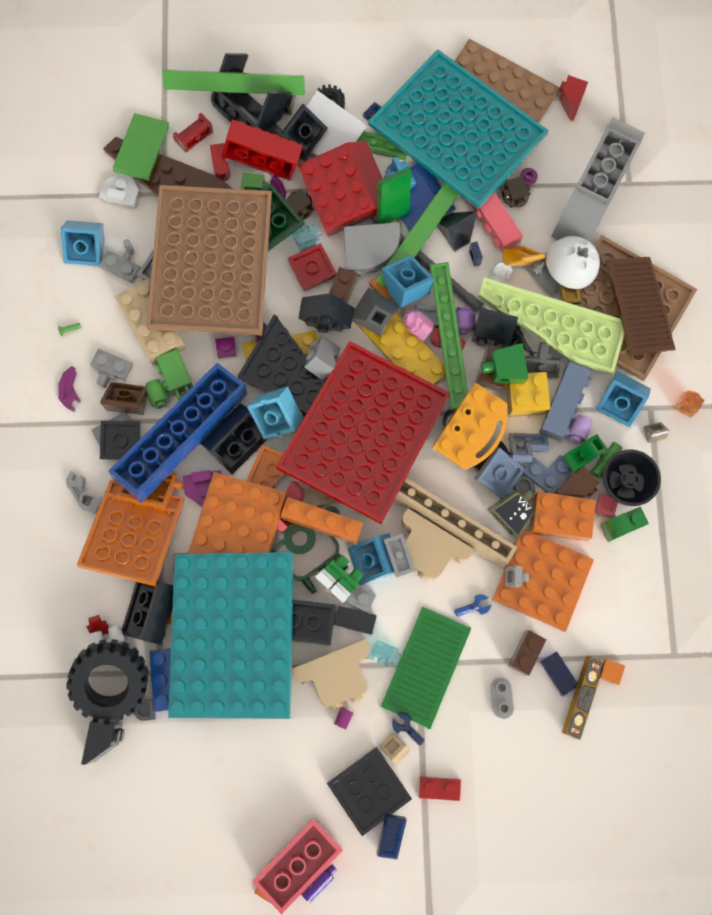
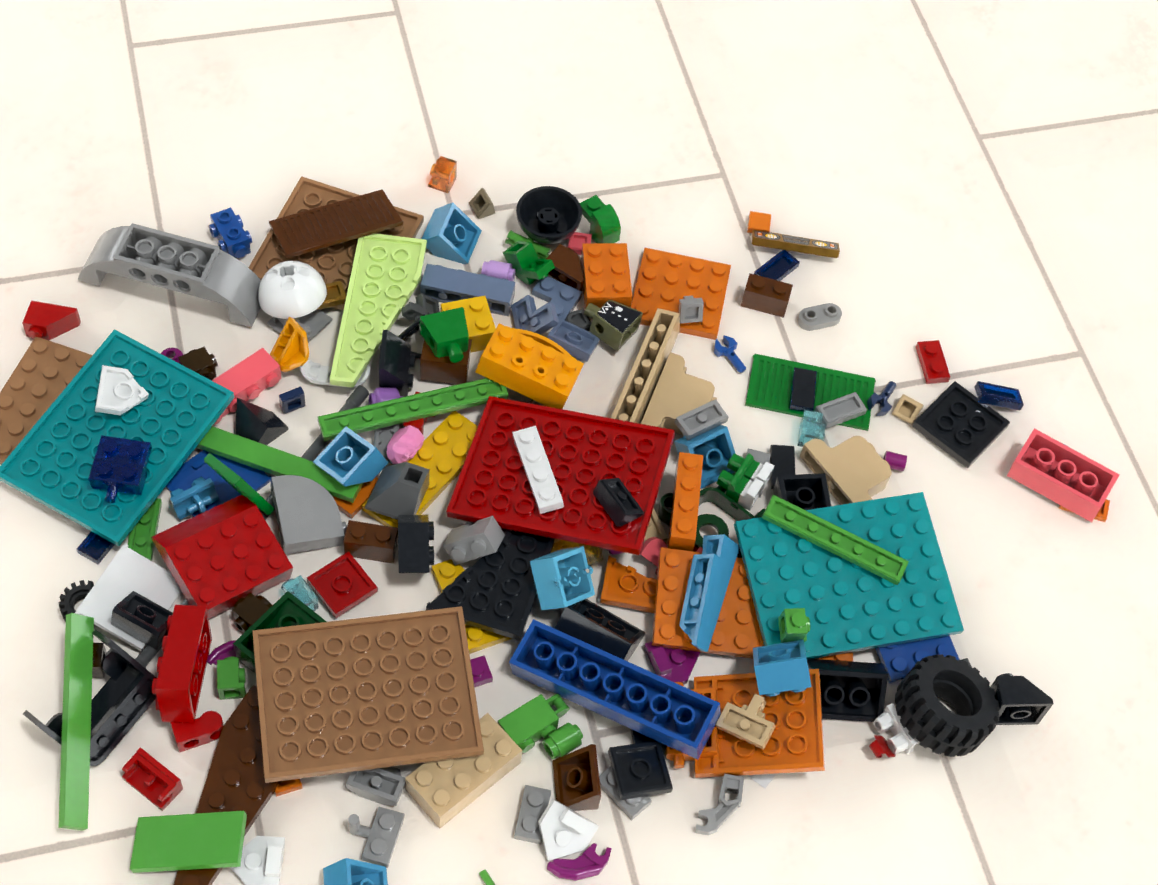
camera: 105 degrees left, 20 degrees down
(89, 380) = (564, 830): none -> white plate
(128, 520) = (747, 722): none -> tan hinge
(161, 554) = (781, 668): none -> dark azure slope
(191, 572) = (793, 625): none -> bright green brick
(242, 517) = (707, 588): none -> dark azure wedge
(257, 627) = (835, 539): none -> bright green tile
(323, 461) = (617, 501): none -> black slope
(368, 410) = (538, 470): none -> white plate
(400, 686) = (841, 409): none -> light grey tile
(423, 122) = (120, 466): none -> clear blue plate
(425, 658) = (803, 390): none -> black tile
(488, 125) = (118, 391): none -> white plate
(639, 230) = (229, 231): none -> blue brick

